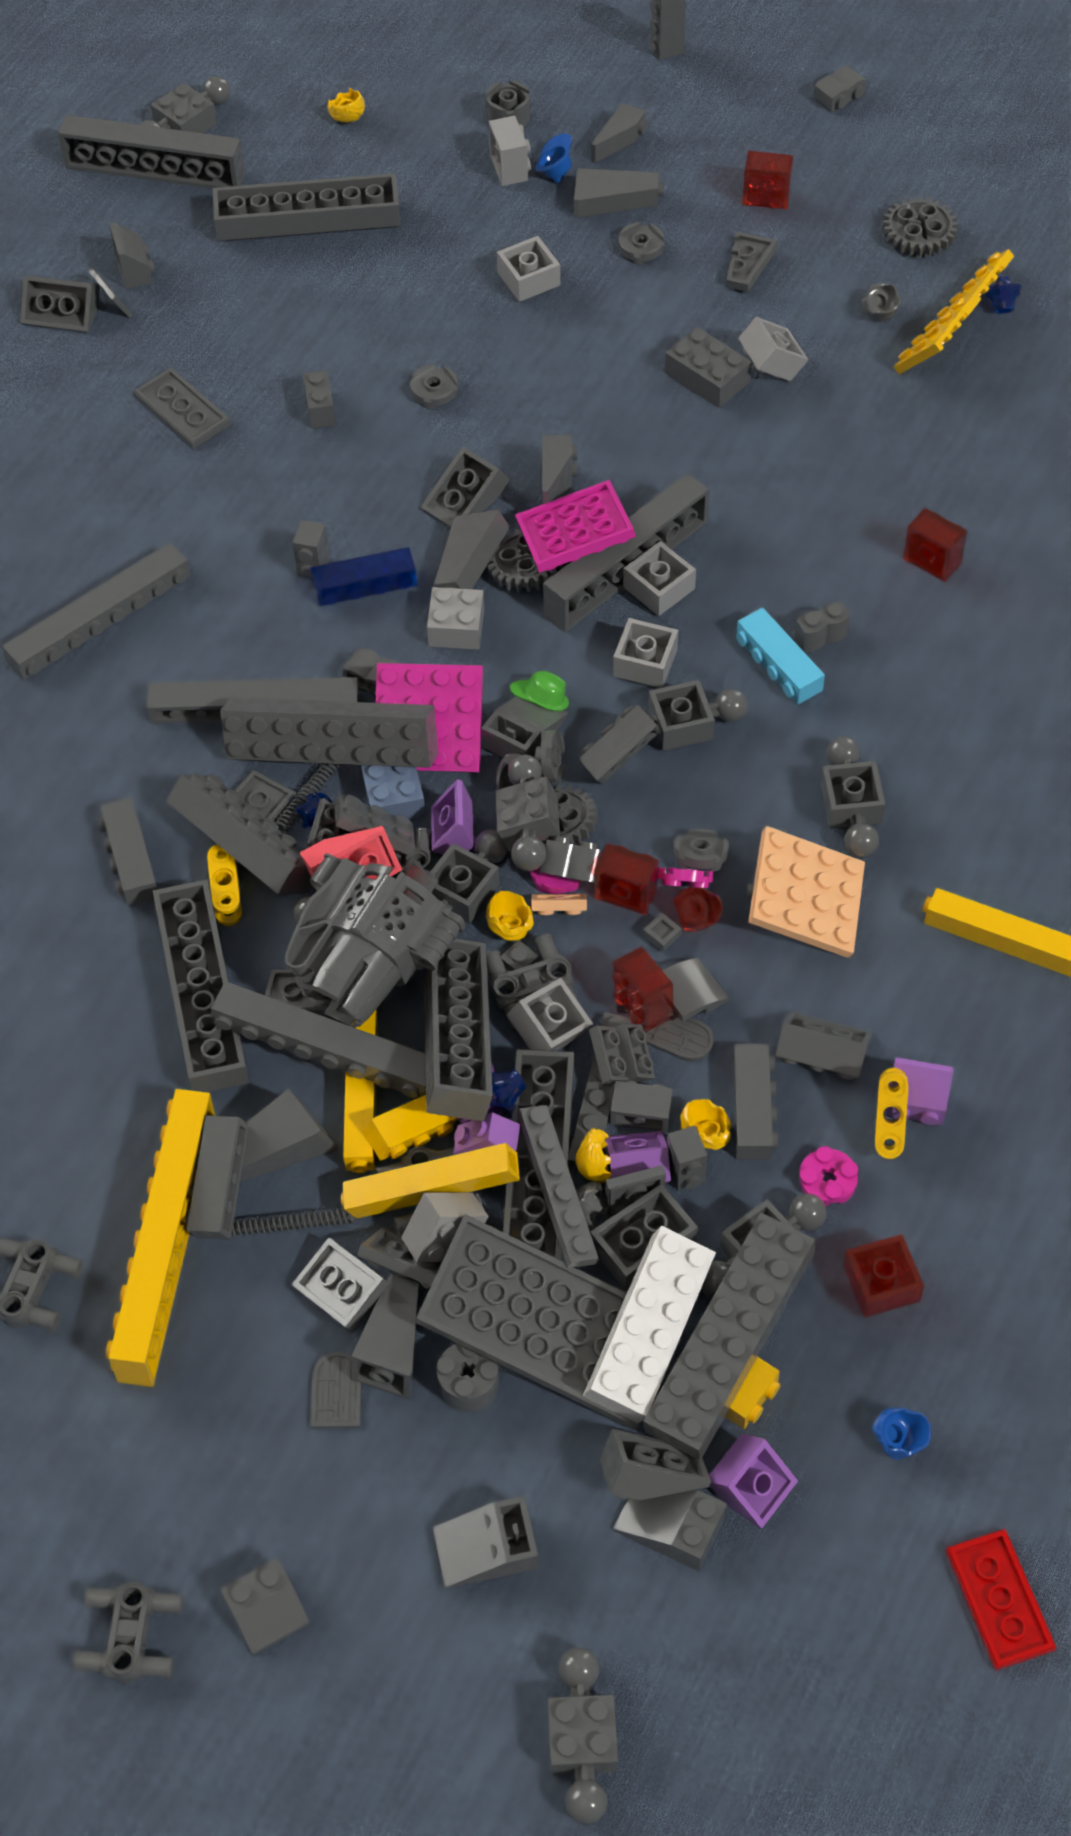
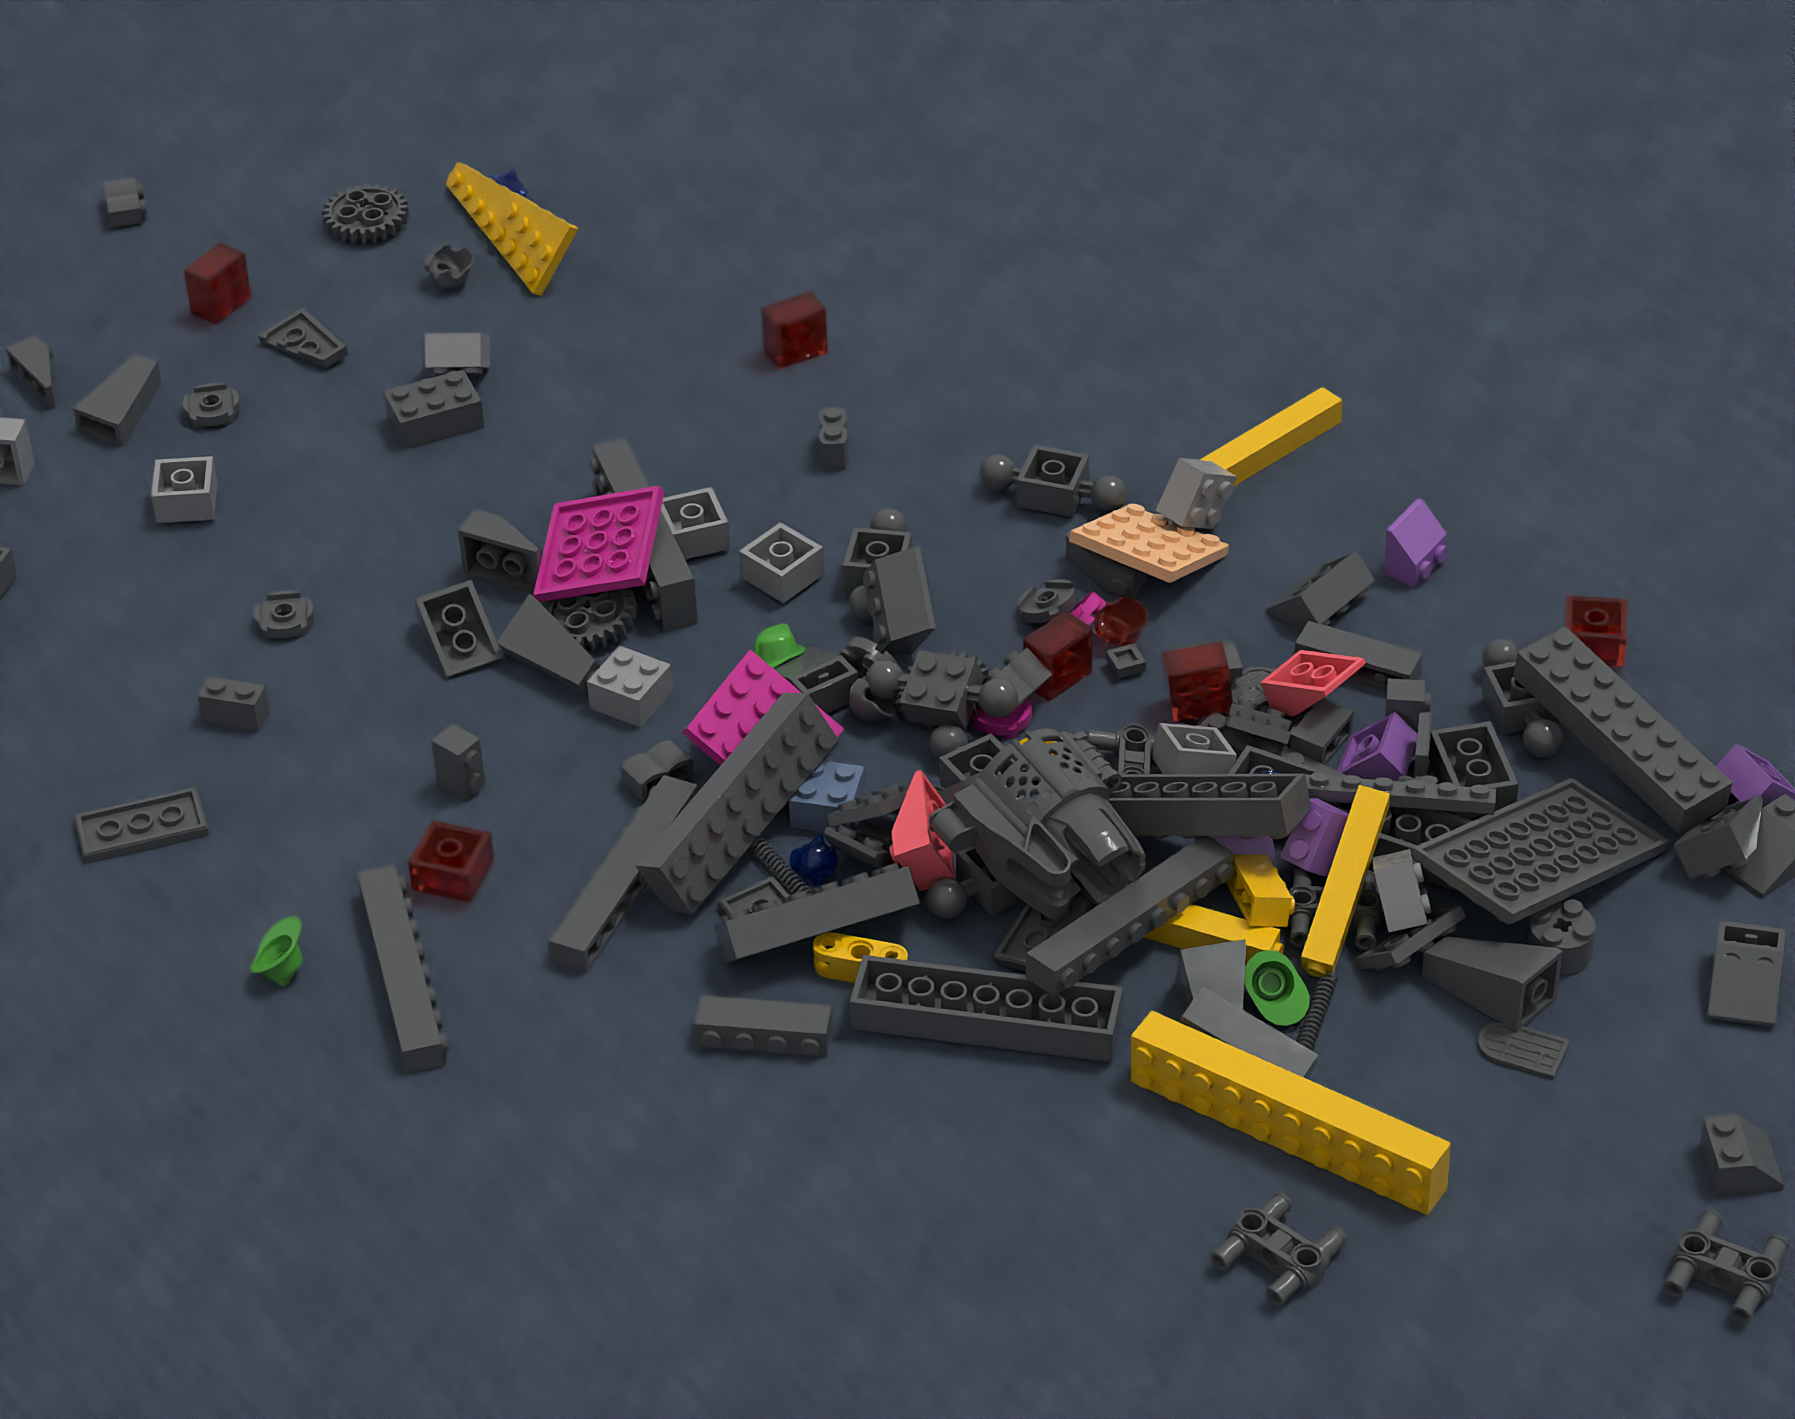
camera: 65 degrees left, 15 degrees down
(76, 539) = (279, 952): none -> bright green piece
(210, 591) = (451, 861): none -> clear red brick
(307, 1178) = (1276, 988): none -> bright green piece
(340, 1284) = (1416, 994): plate -> none
(364, 576) = (518, 741): clear blue brick -> none
(452, 819) = (903, 749): medium lavender slope -> none
(548, 903) = (1050, 713): light nougat plate -> none
(555, 157) = (41, 419): blue piece -> none
(590, 1158) = (1372, 762): yellow hair -> none
(649, 1324) = (1582, 779): white brick -> none
(683, 1068) = (1307, 679): none -> coral slope
(710, 1122) = (1365, 697): yellow hair -> none
(780, 656) = (847, 478): medium azure brick -> none
(831, 1161) = (1466, 627): dark pink plate -> none
(879, 900) = (1196, 493): none -> light grey brick
(894, 1128) = (1434, 562): yellow piece -> none
(902, 1432) = (1758, 670): blue hair -> none

